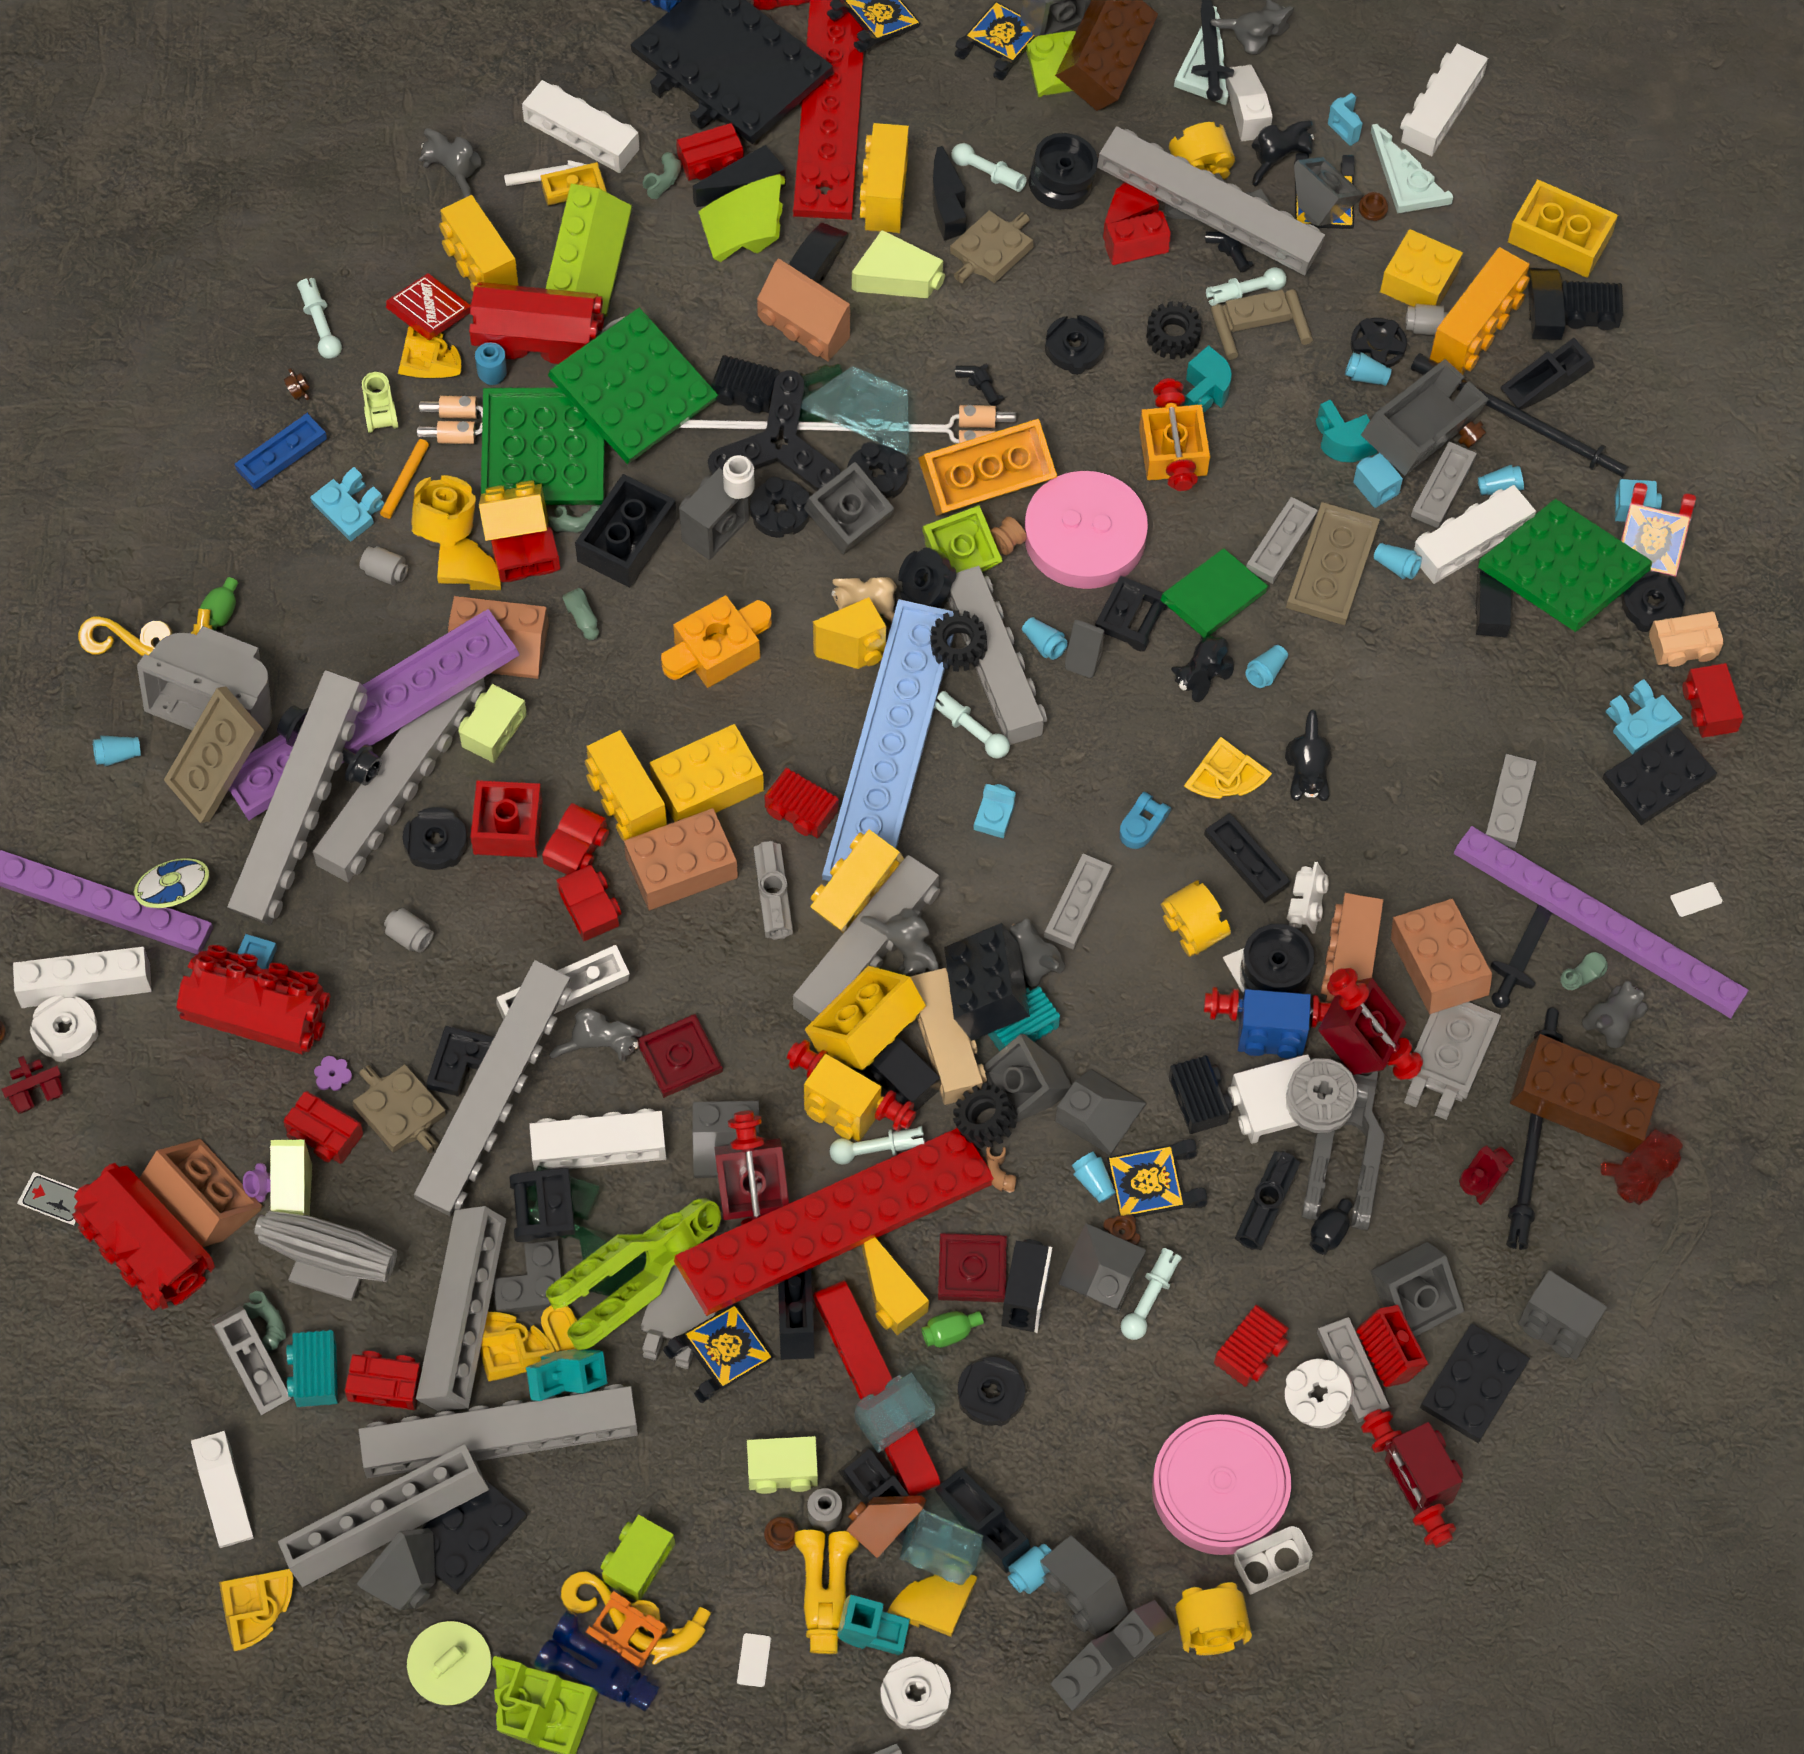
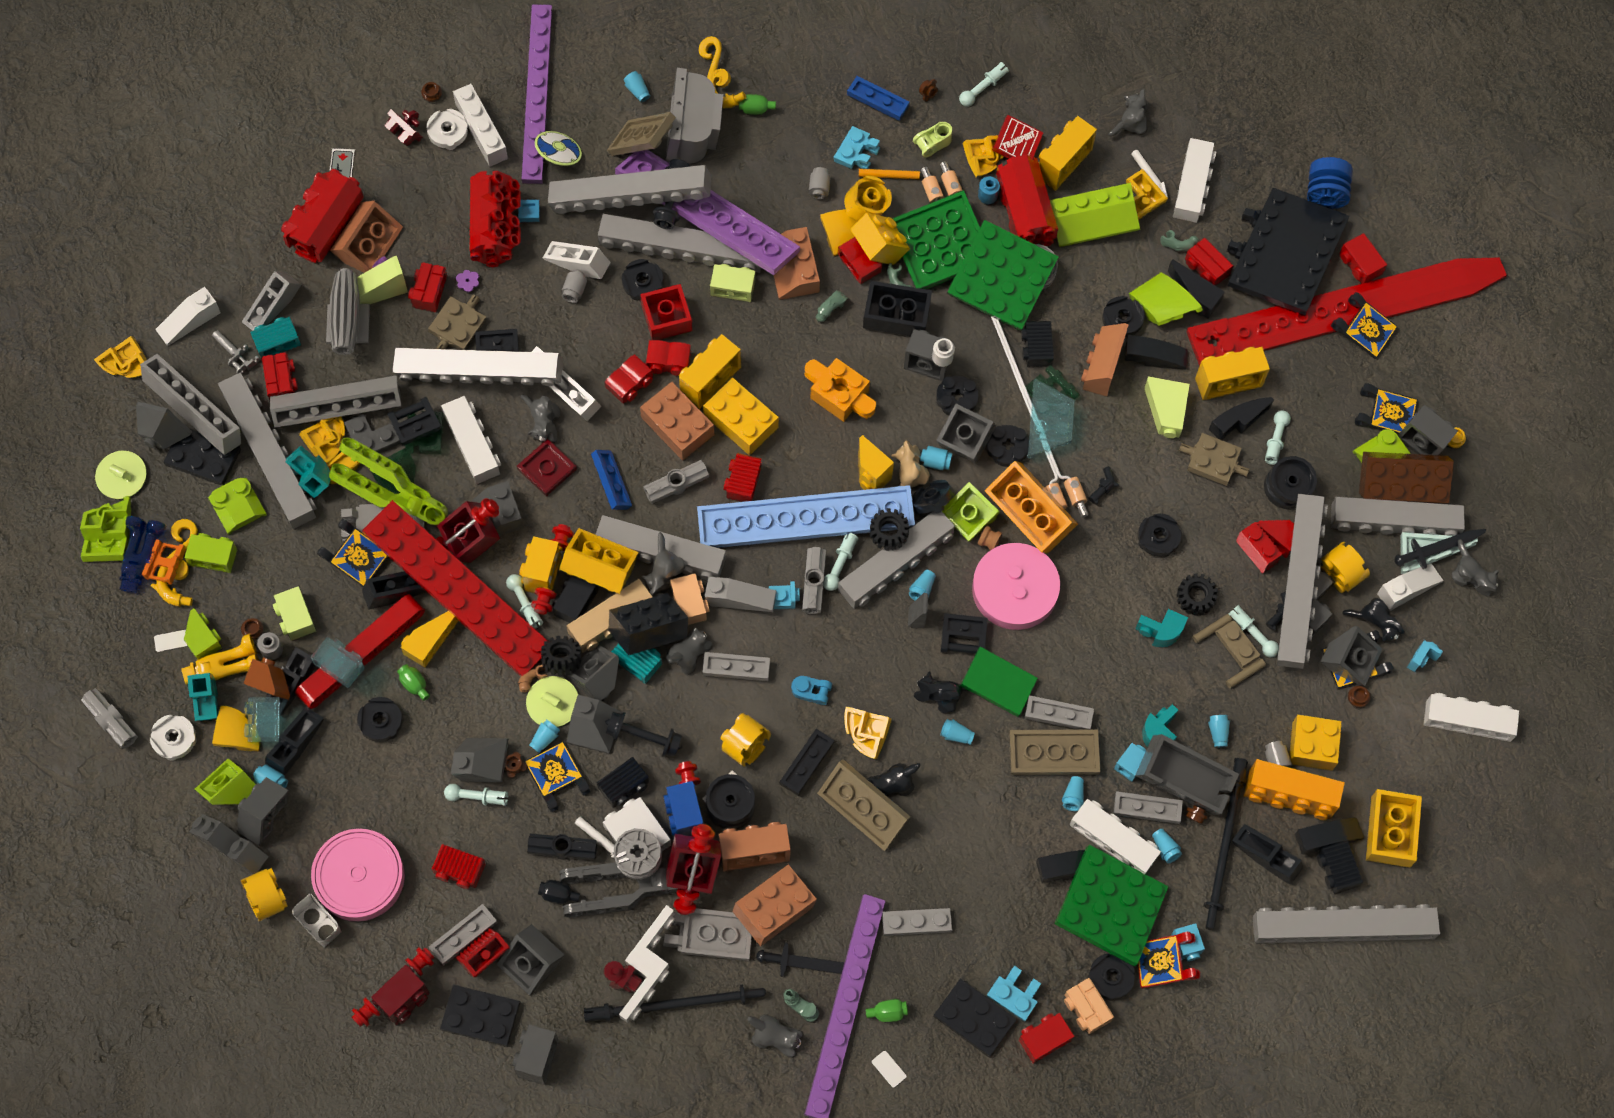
camera: 70 degrees right, 5 degrees up
(275, 1327) = (294, 310): sand green piece -> none
(309, 1438) = (236, 353): none -> light grey piece
(364, 912) = (578, 258): none -> white slope
(570, 1503) = (236, 504): none -> lime slope
(736, 973) = (611, 480): none -> blue plate
(738, 261) = (1127, 307): none -> black plate
(769, 1610) = (199, 637): none -> lime slope
(797, 455) = (992, 368): black piece -> none
(855, 880) = (689, 522): yellow brick -> none
(865, 559) = (936, 458): none -> medium azure brick
(953, 923) = (688, 597): none -> light nougat brick
(971, 757) = (814, 569): none -> light grey piece
(972, 1267) = (460, 683): dark red tile -> none
(978, 861) = (739, 595): none -> light grey slope
(1020, 1632) = (226, 785): none -> lime slope
(1026, 1285) = (450, 715): black piece -> none
(1043, 1154) = (551, 700): none -> yellowish green shield
(1118, 1069) = (670, 744): none -> black piece
(1154, 71) = (1396, 516): none -> light grey brick
(1174, 438) = (1104, 618): light orange brick -> none
(1293, 1137) = (591, 831): none -> white piece
(1311, 885) = (801, 810): white hinge -> none
(1335, 804) = (863, 805): none -> dark tan plate
(1335, 1402) = (430, 909): white plate -> none
(1379, 340) = (1248, 732): black wheel -> none
(1408, 182) = (1389, 714): light aqua wing -> none
(1483, 1128) = (648, 964): none -> white bracket
(1585, 1093) = (703, 1027): reddish brown brick -> none
(1623, 869) = (888, 1010): none -> bright green plant
(1646, 1167) = (665, 1083): clear red brick -> none
(1666, 326) = (1346, 924): none -> light grey brick

